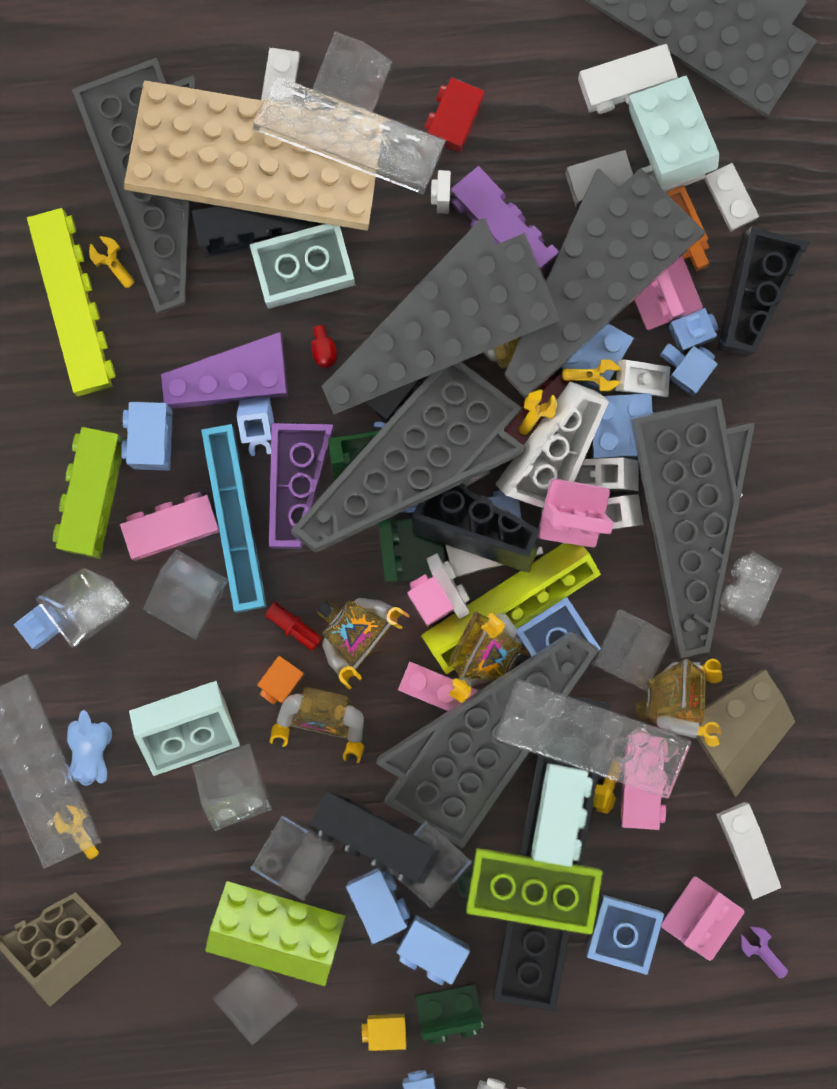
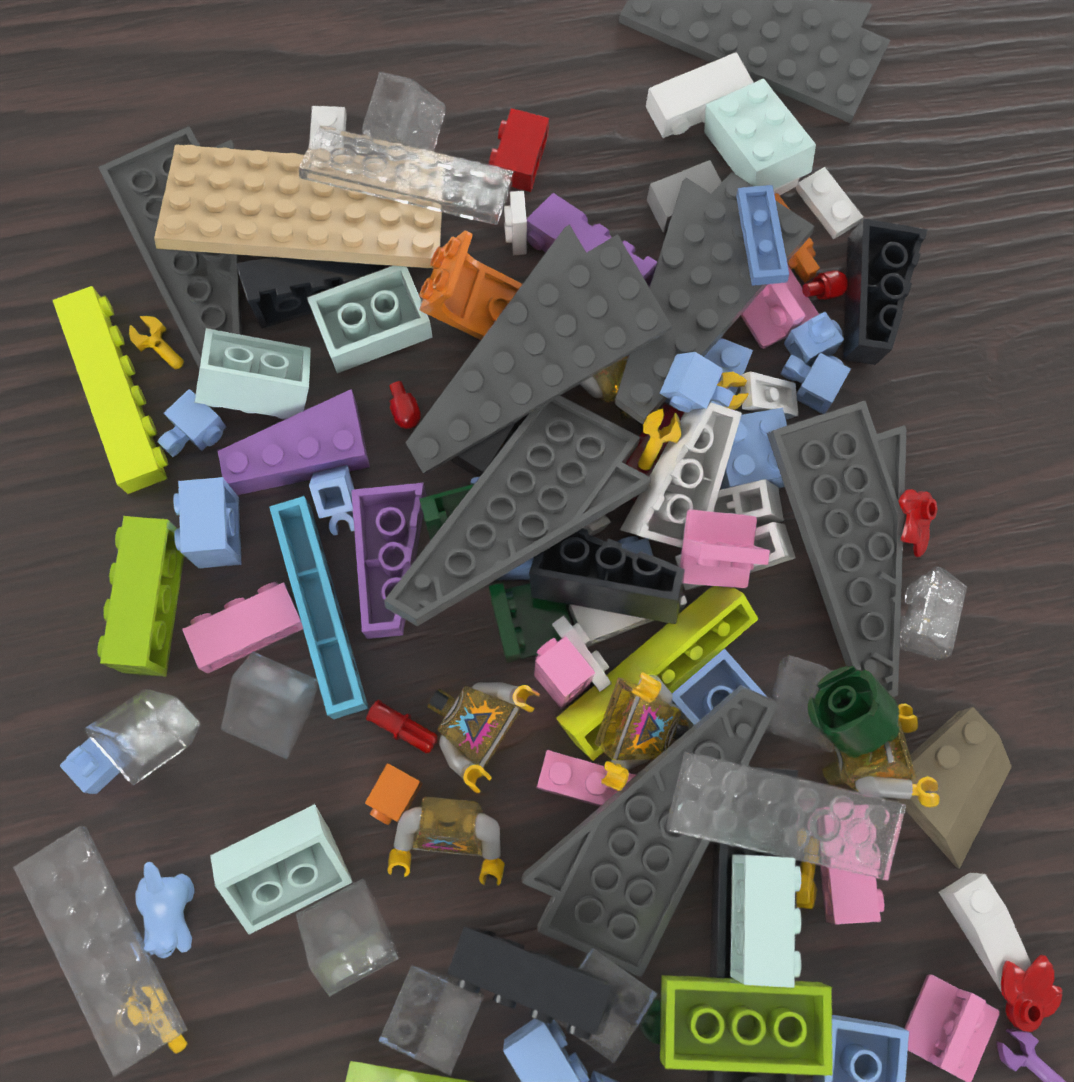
camera: 15 degrees left, 10 degrees down
(140, 341) = (191, 422): none -> light blue brick
(196, 306) = (253, 374): none -> light aqua slope
(392, 255) = (465, 290): none -> orange bracket
(571, 372) = (694, 382): none -> light blue brick
(653, 240) = (762, 235): none -> medium blue plate
(663, 662) = (854, 711): none -> dark green brick
(713, 279) = (827, 285): none -> red cylinder
(755, 499) = (919, 511): none -> red plate
(773, 897) = (1030, 993): none -> red plate

